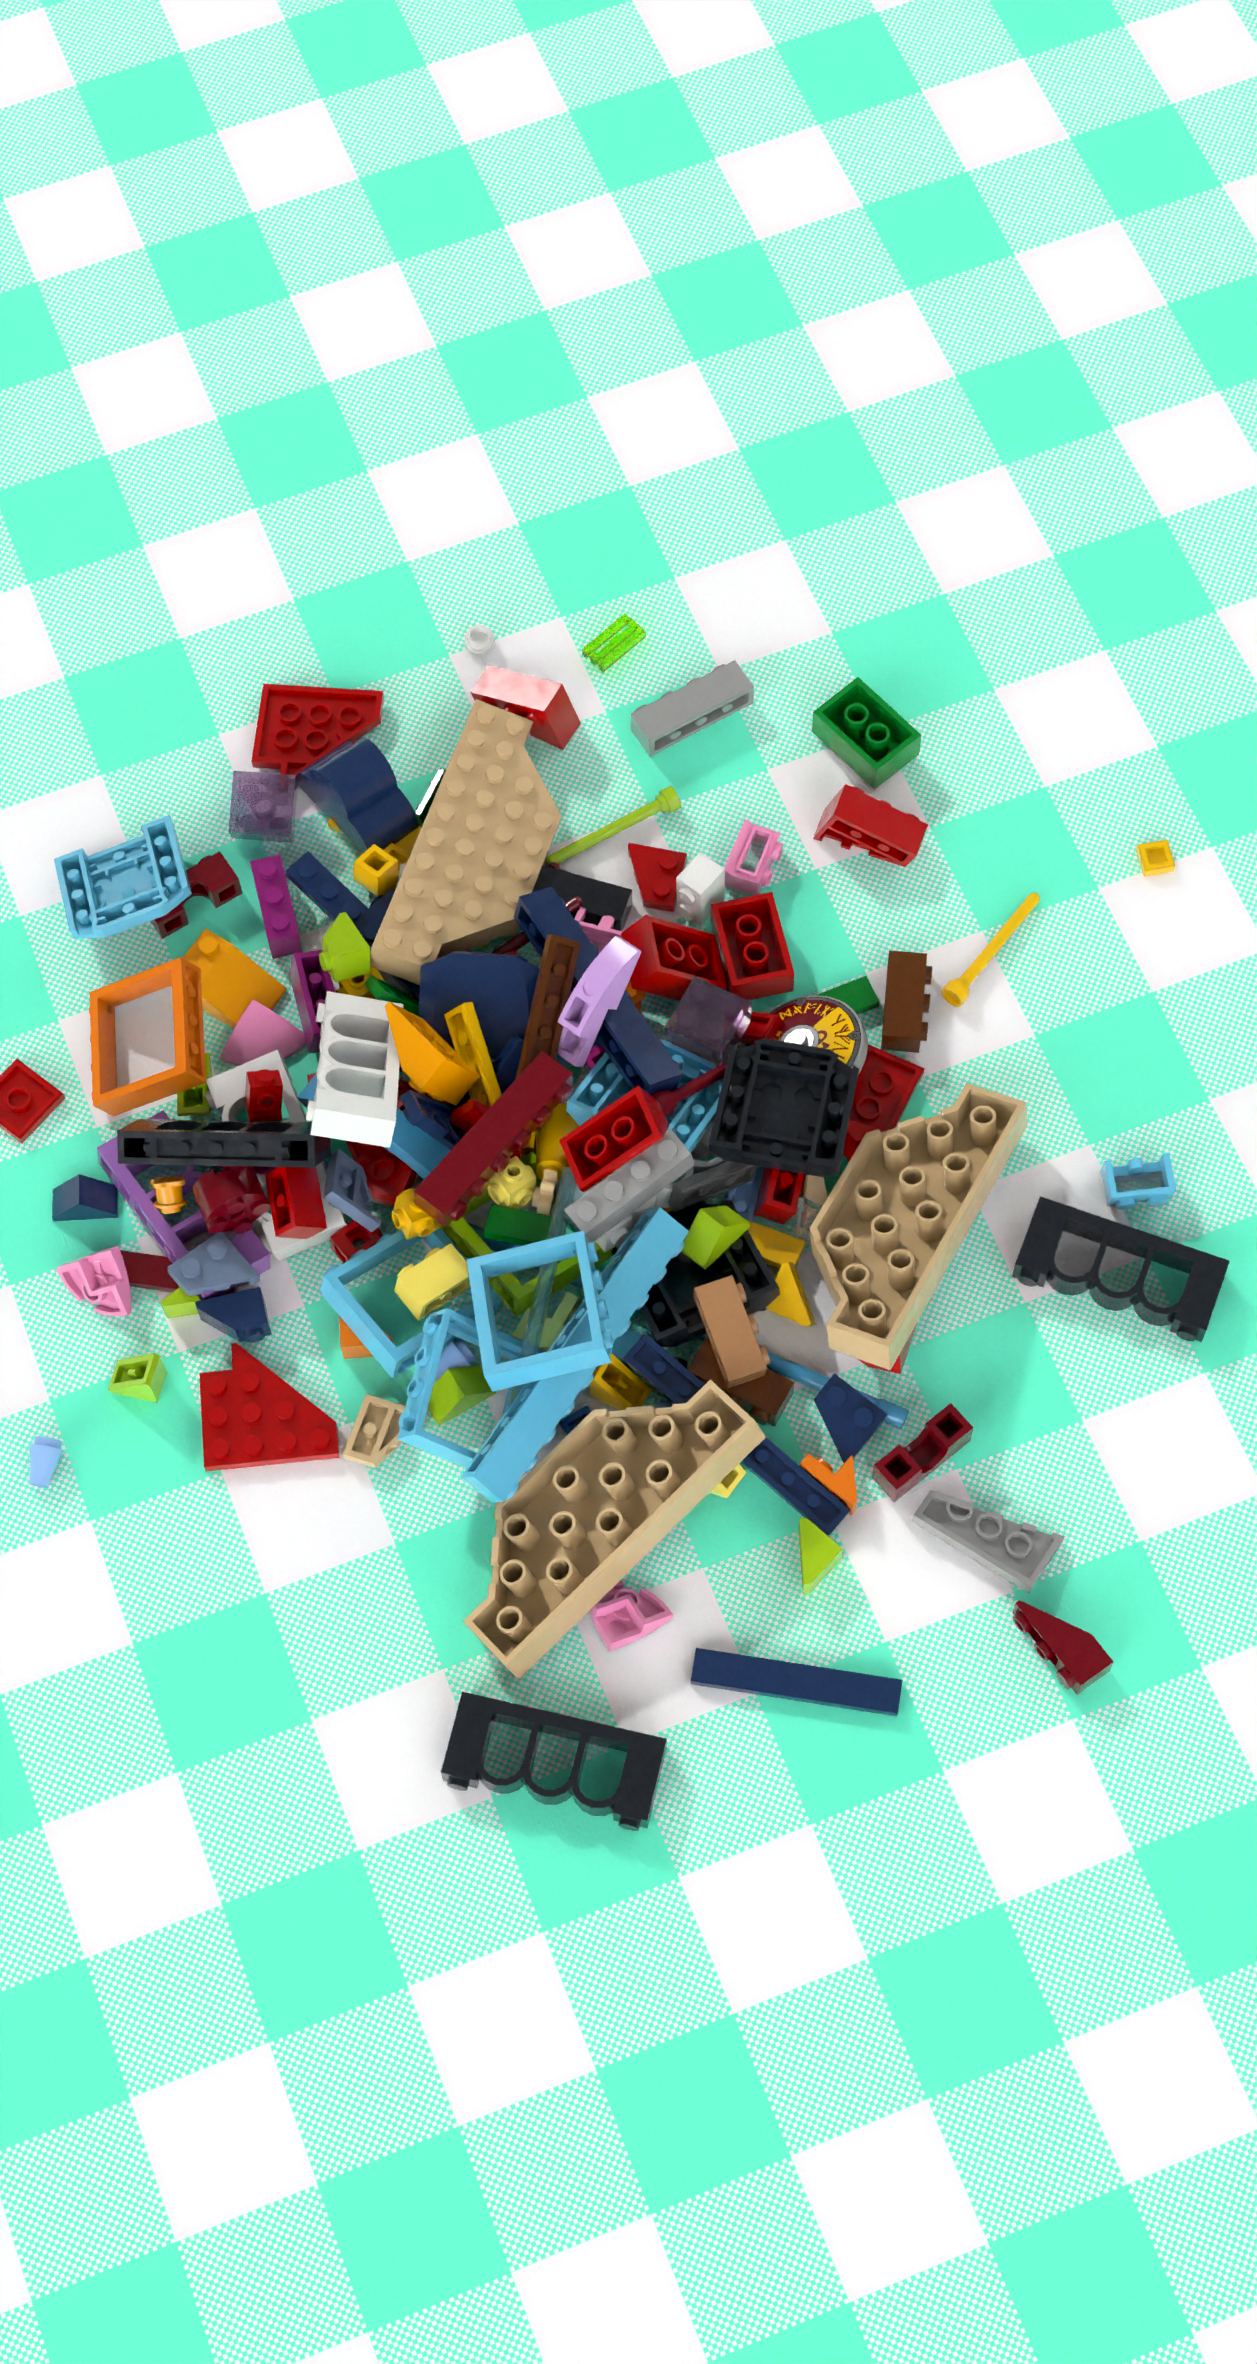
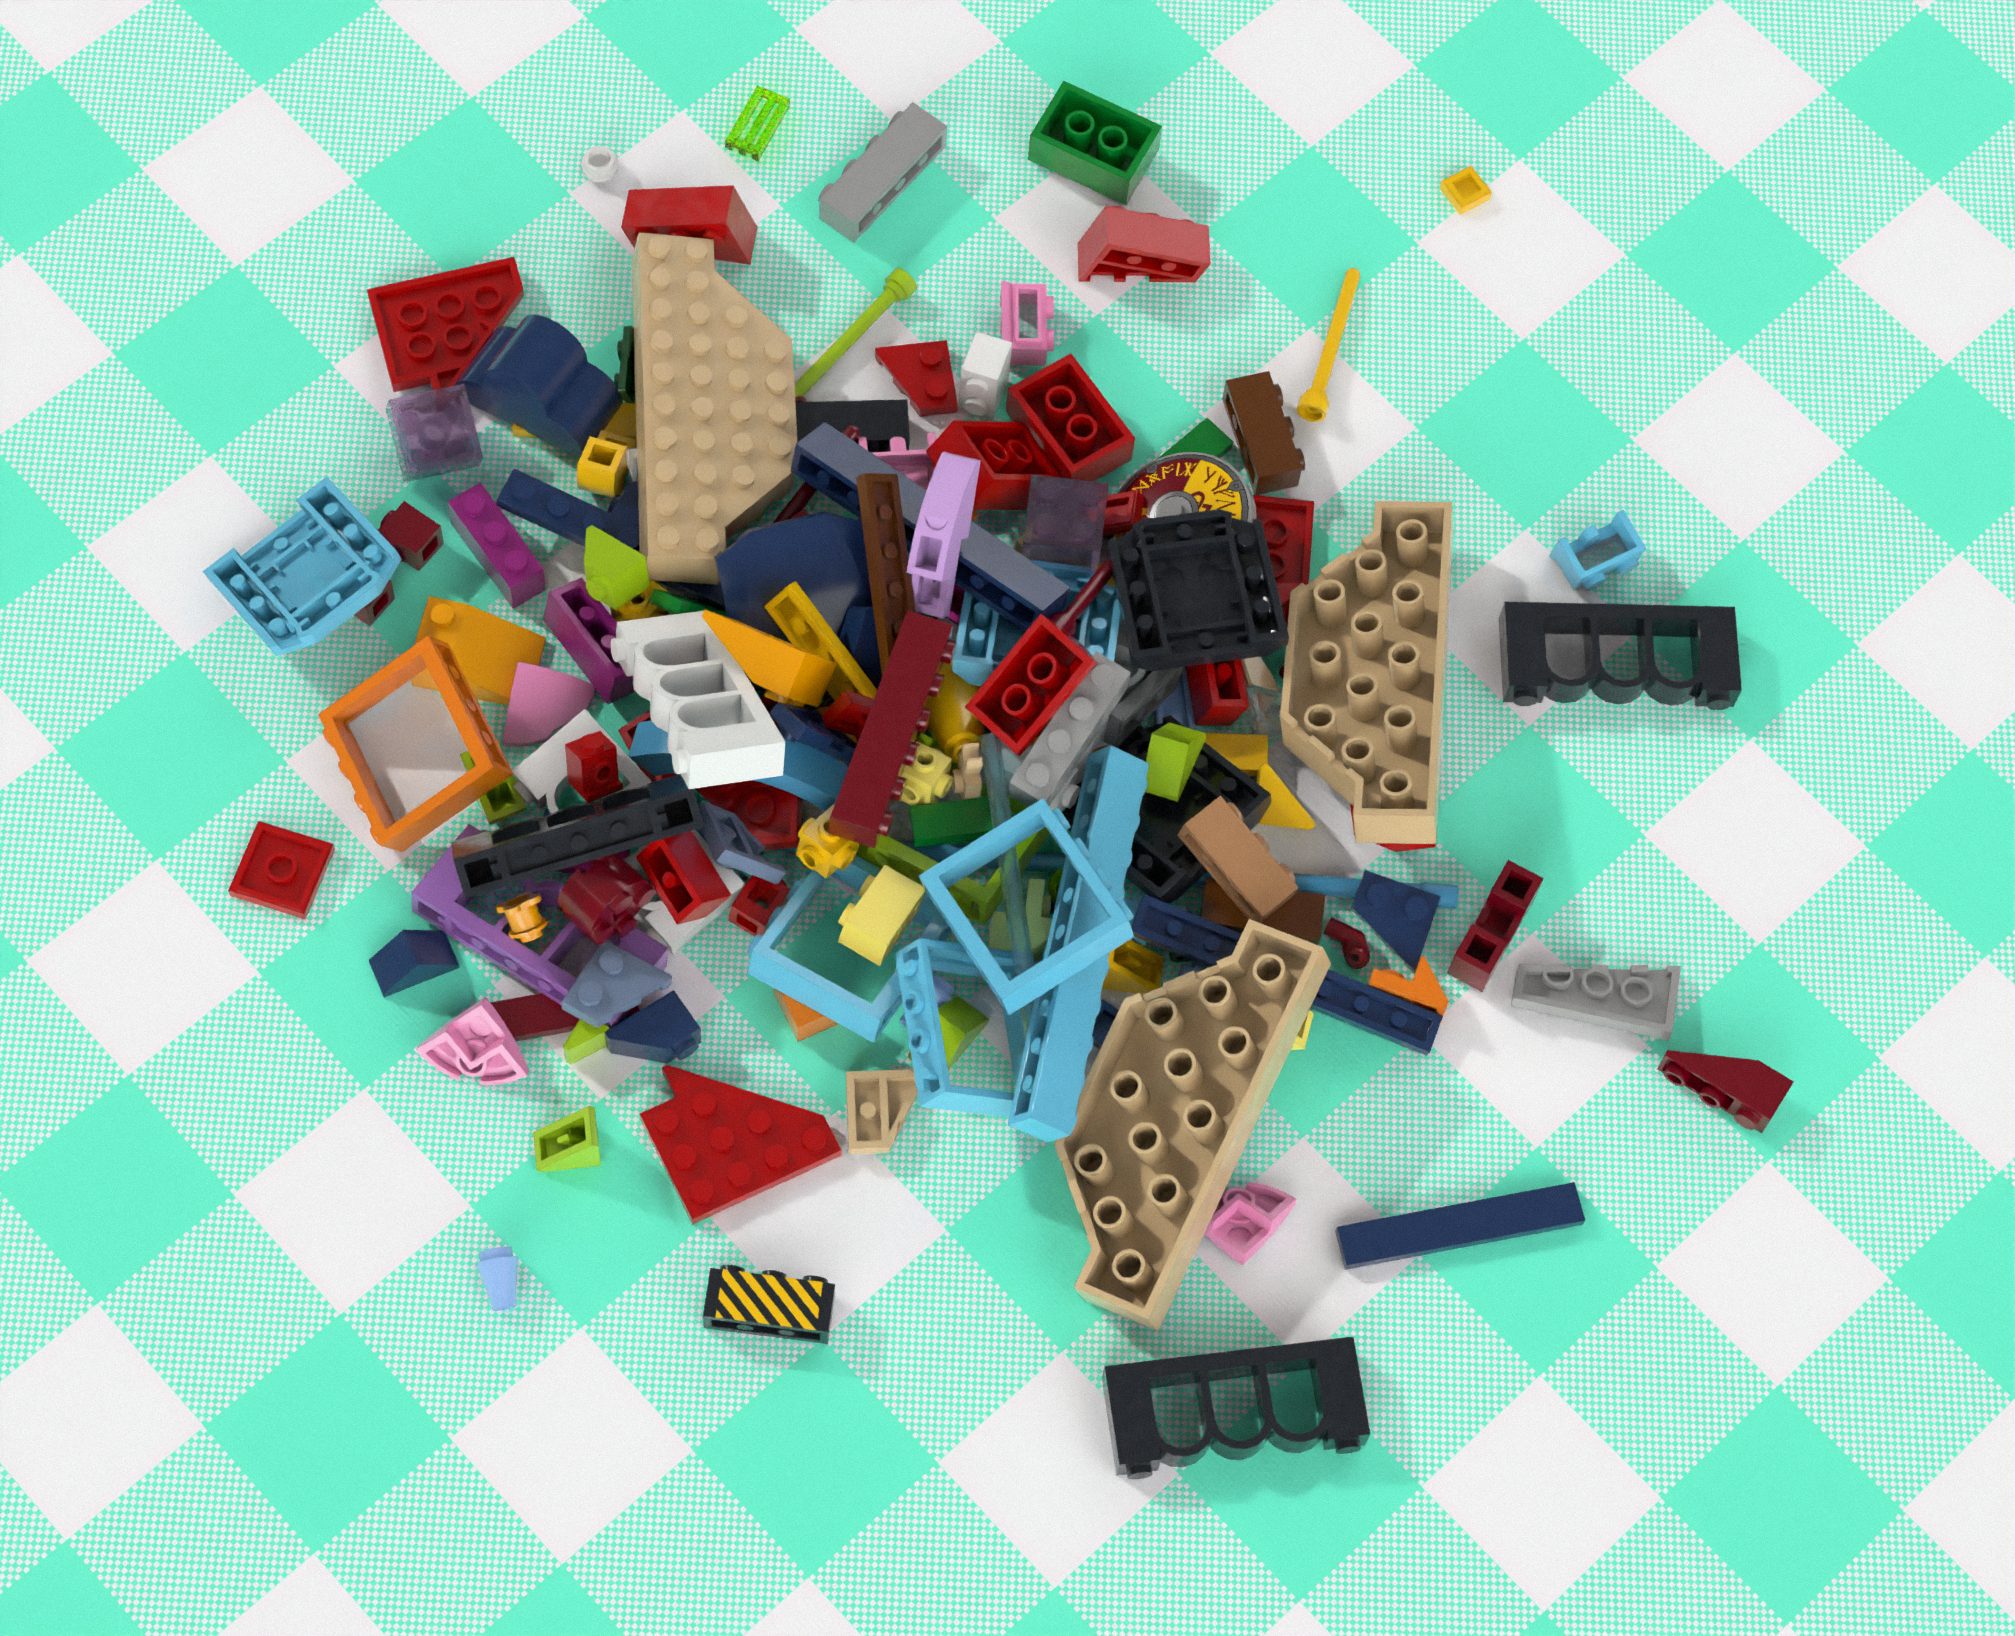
camera: 30 degrees left, 0 degrees up
(232, 1552) = (769, 1304): none -> brick
(806, 1427) = (1352, 941): none -> dark red arm
(817, 1554) = (1423, 1077): lime slope -> none

